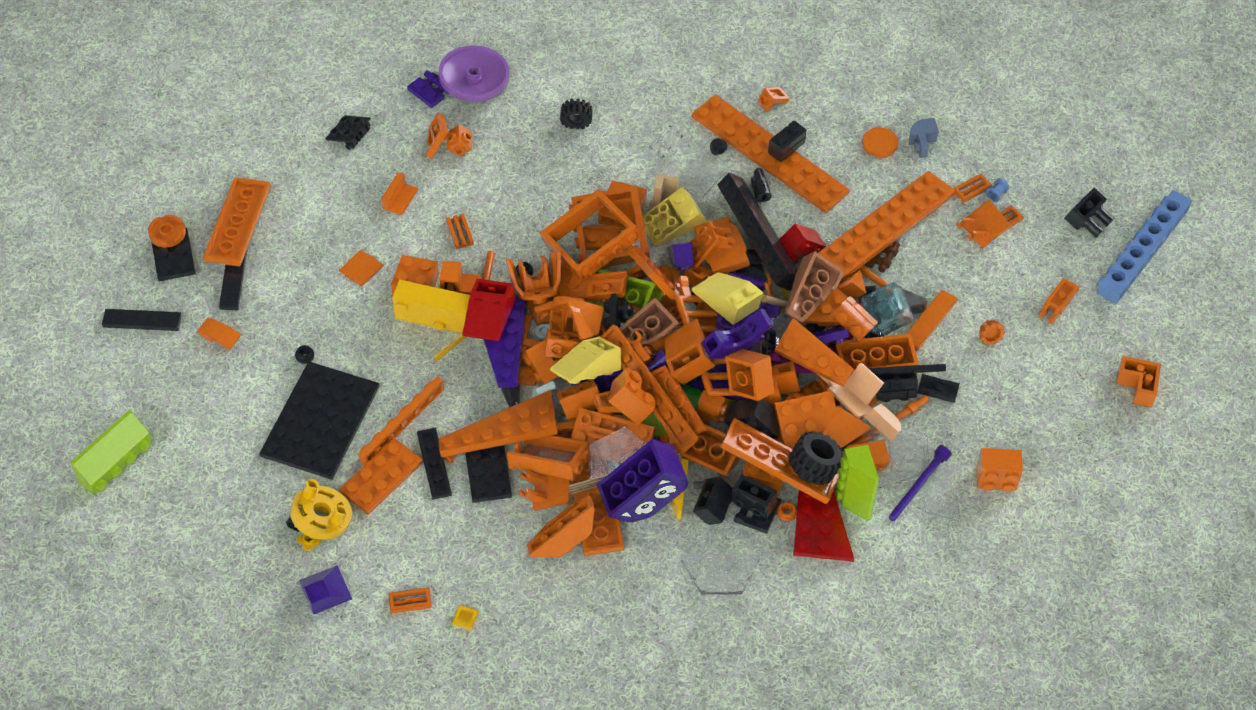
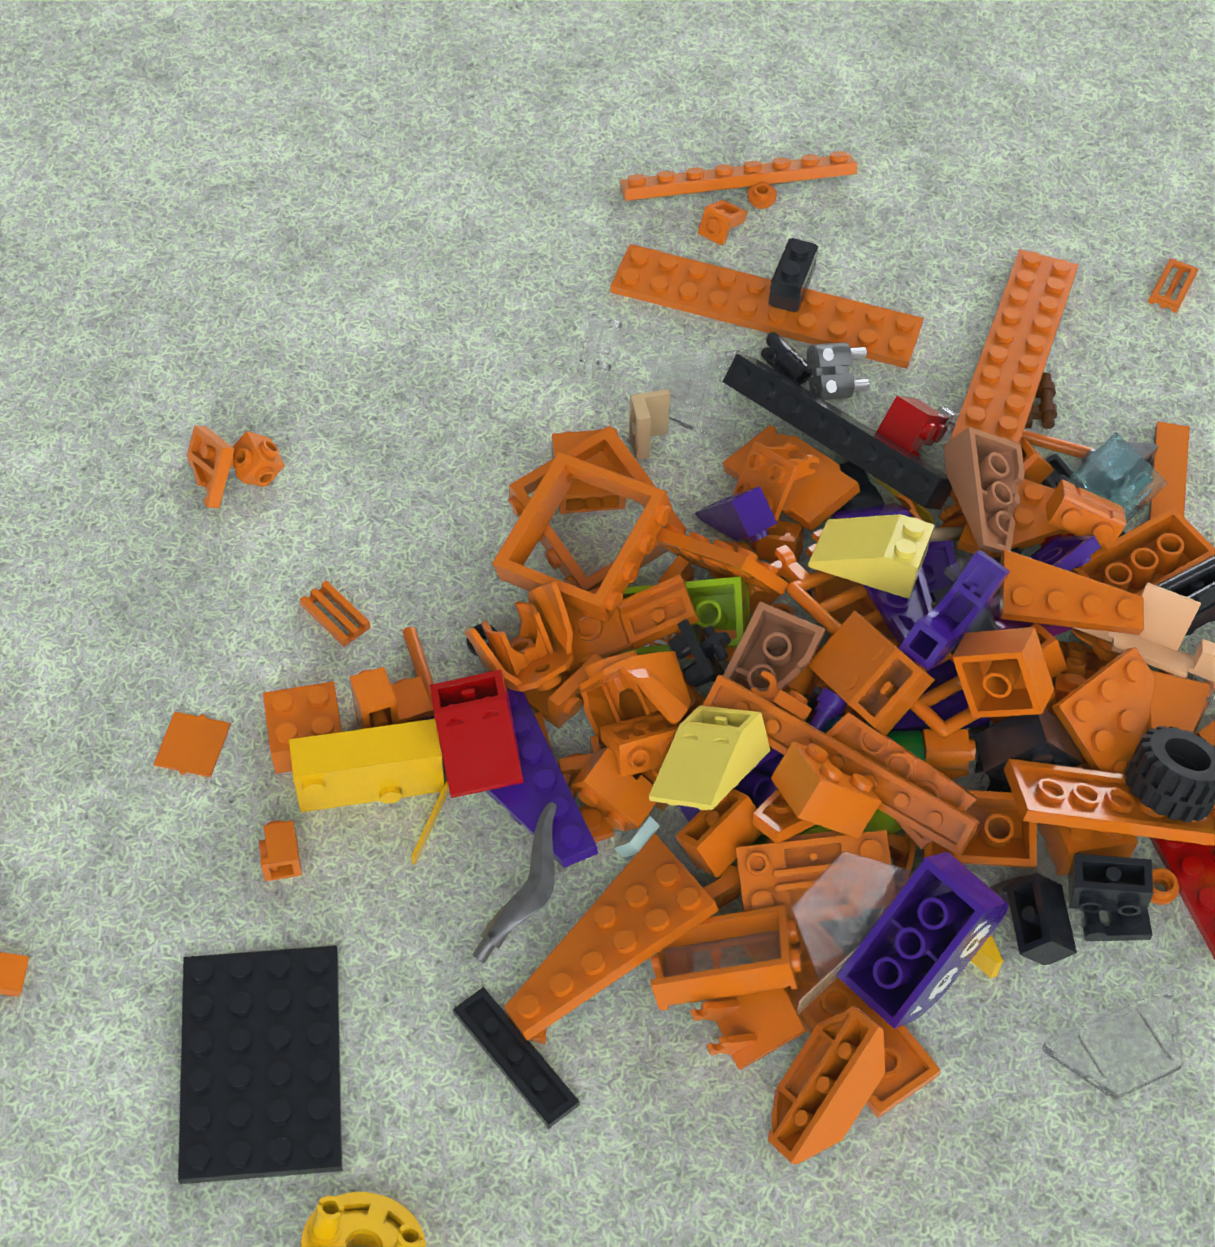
camera: 25 degrees left, 0 degrees up
(304, 349) = (167, 937): black plate -> none
(350, 130) = (50, 509): black hinge -> none
(374, 331) = (279, 851): none -> orange brick
(380, 476) = (431, 1125): orange plate -> none
(398, 195) = (196, 591): orange panel -> none
(402, 420) = (410, 1017): orange plate -> none
(425, 92) = (155, 401): dark purple plate -> none
(474, 73) = (222, 341): medium lavender dish -> none
(477, 394) = (533, 893): none -> flat silver piece
(488, 474) = (626, 1038): black plate -> none
(511, 395) = (589, 875): black cone -> none
(541, 331) = (576, 734): light aqua tile -> none
(576, 107) = (425, 361): black tyre -> none
(599, 235) = (587, 533): orange plate -> none
(673, 217) = (685, 456): light yellow slope -> none
(718, 146) = (683, 322): black plate -> none
(778, 199) = (831, 370): none -> dark grey piece
(794, 76) = (729, 177): none -> orange plate
(803, 91) = (762, 195): none -> orange plate
(880, 142) = (921, 232): orange tile -> none
(922, 133) = (980, 199): sand blue brick -> none
(962, 195) = (1087, 268): orange tile -> none
(984, 224) = (1156, 298): orange plate -> none
(1000, 186) = (1137, 242): medium blue bush -> none

